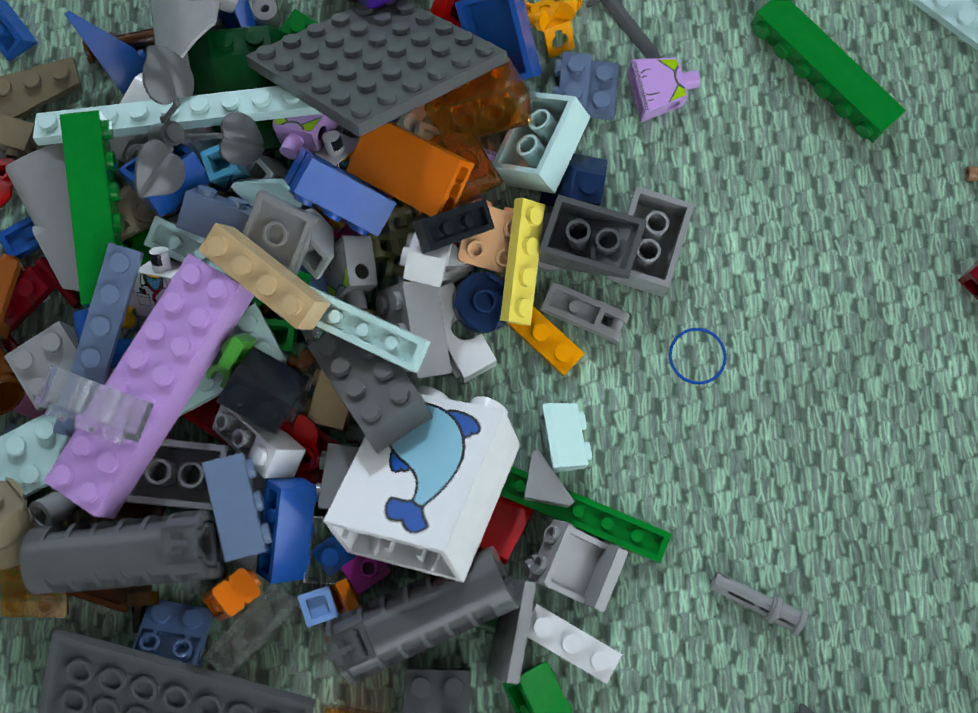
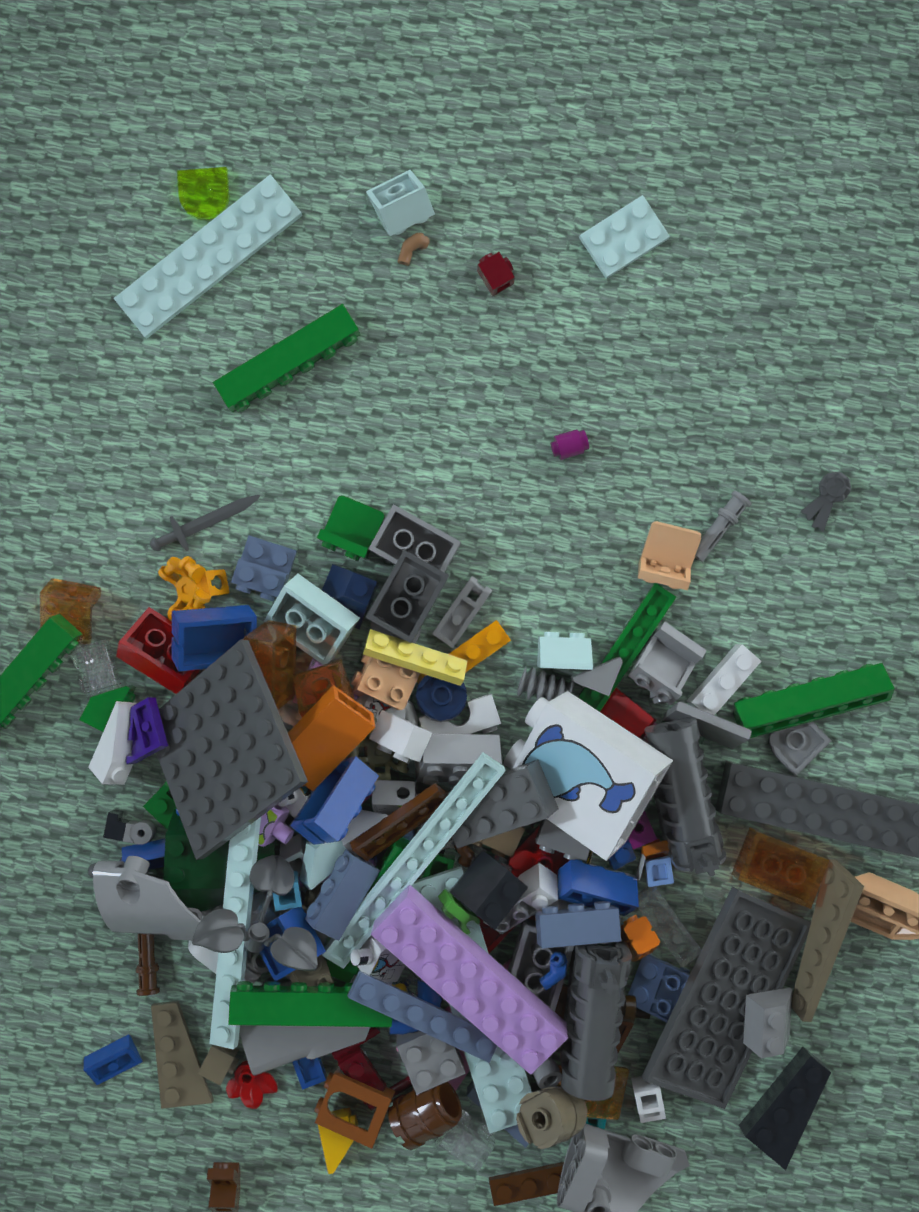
camera: 70 degrees left, 10 degrees up
(28, 647) = (648, 1100): none -> white brick
(93, 406) = (484, 1027): clear brick -> none
(114, 55) = (161, 970): blue slope -> none
(176, 493) = (557, 972): none -> blue arm
(264, 277) = (402, 876): tan brick -> none
(280, 229) = (364, 858): light grey tile -> none
(337, 279) = (398, 823): none -> reddish brown plate
(453, 226) = (383, 712): black plate -> none
(518, 406) = (542, 687): none -> light grey piece
(652, 167) = (351, 528): none -> green bracket
(659, 85) = (277, 505): lavender torso -> none
(709, 332) = (514, 549): blue piece -> none
(710, 542) = (669, 555): none -> light nougat bracket
(812, 398) = (569, 444): none -> magenta brick

